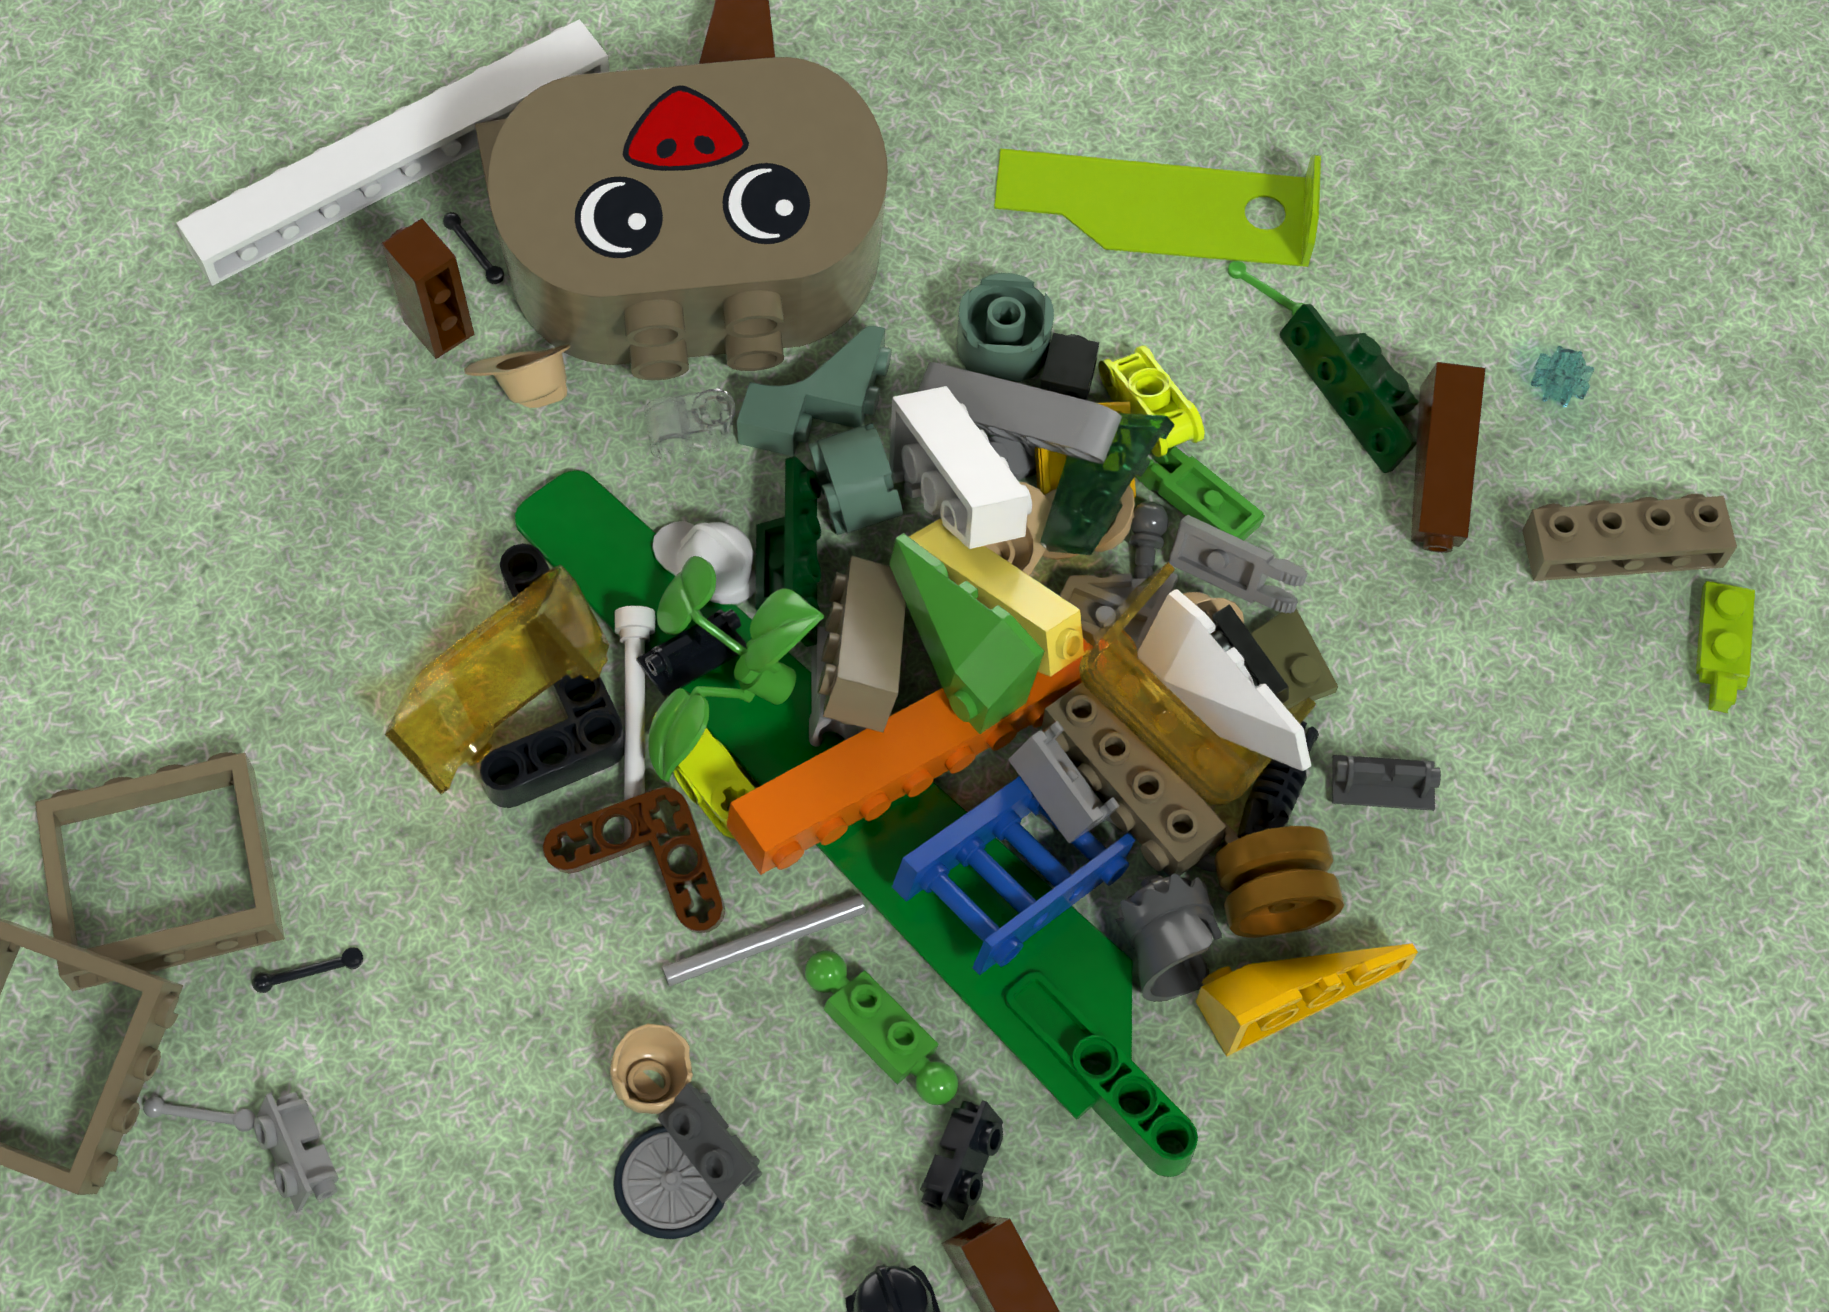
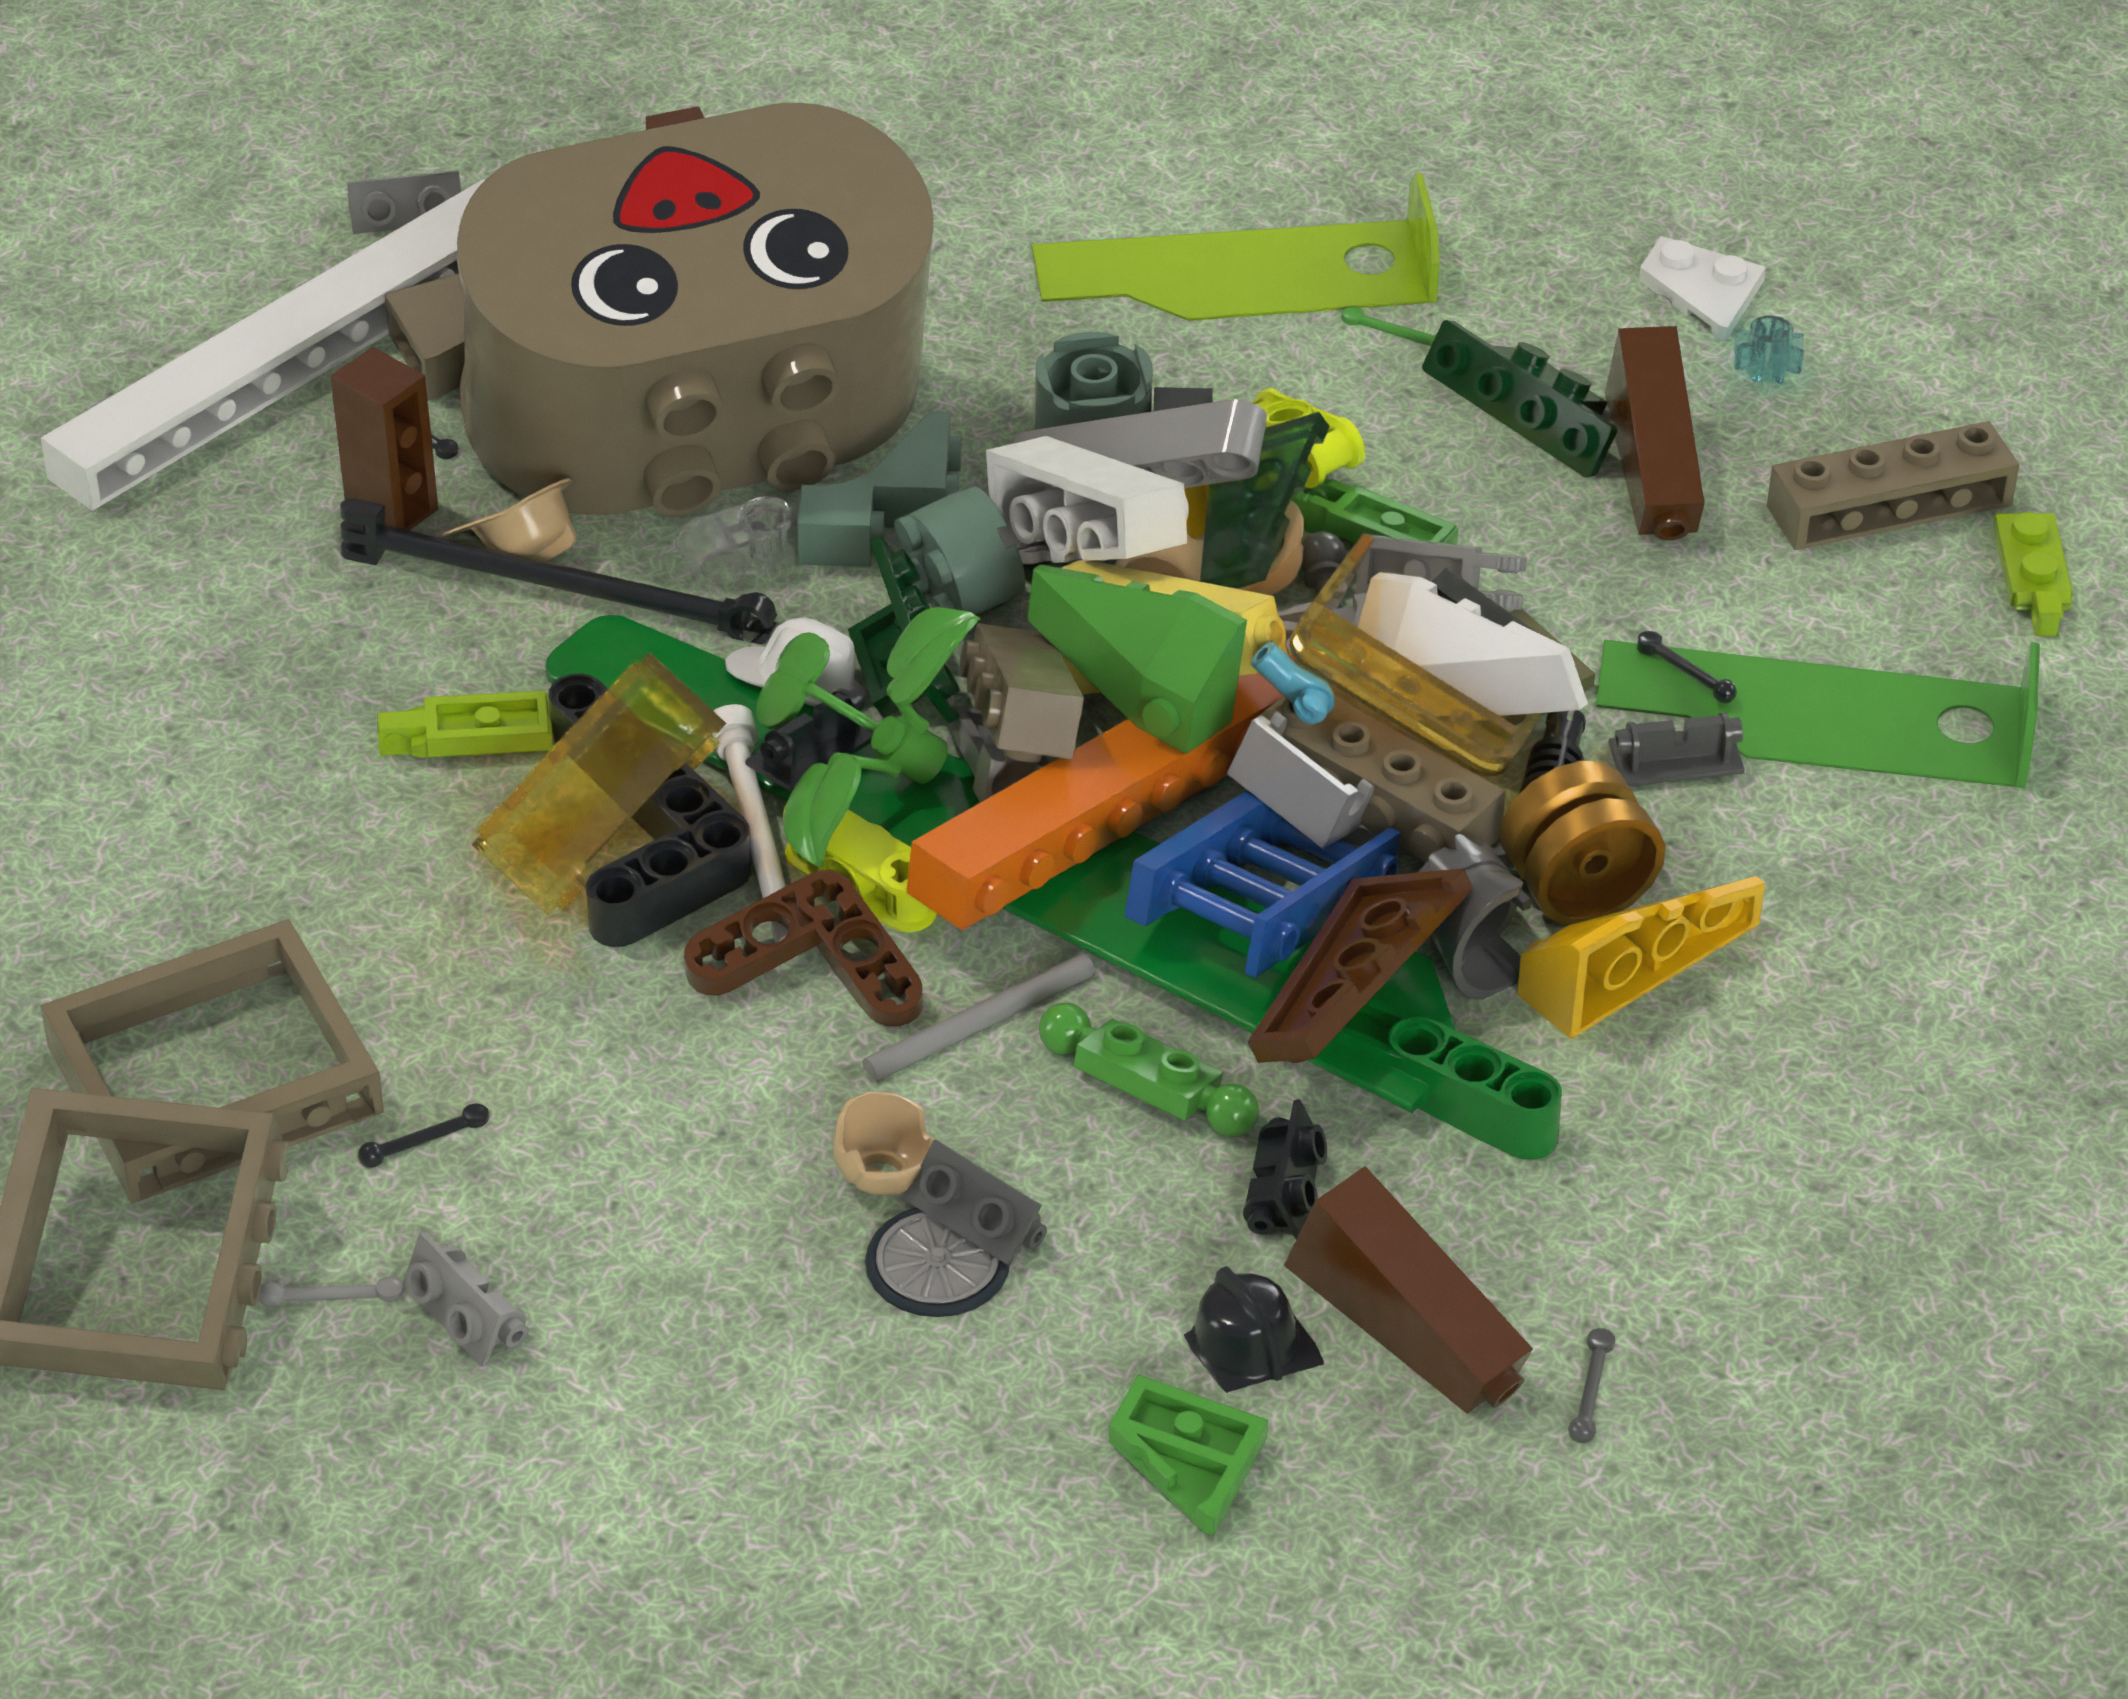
camera: 10 degrees left, 20 degrees down
(408, 361) = (368, 538): none -> black hinge
(440, 567) = (468, 725): none -> lime hinge
(517, 21) = (398, 200): none -> light grey hinge
(1061, 978) = (1353, 956): none -> reddish brown wing
(1068, 682) = (1307, 692): none -> medium azure arm
(1391, 661) = (1651, 644): none -> black hinge
(1523, 757) = (1838, 712): none -> bright green piece
(1527, 289) = (1702, 282): none -> white wing

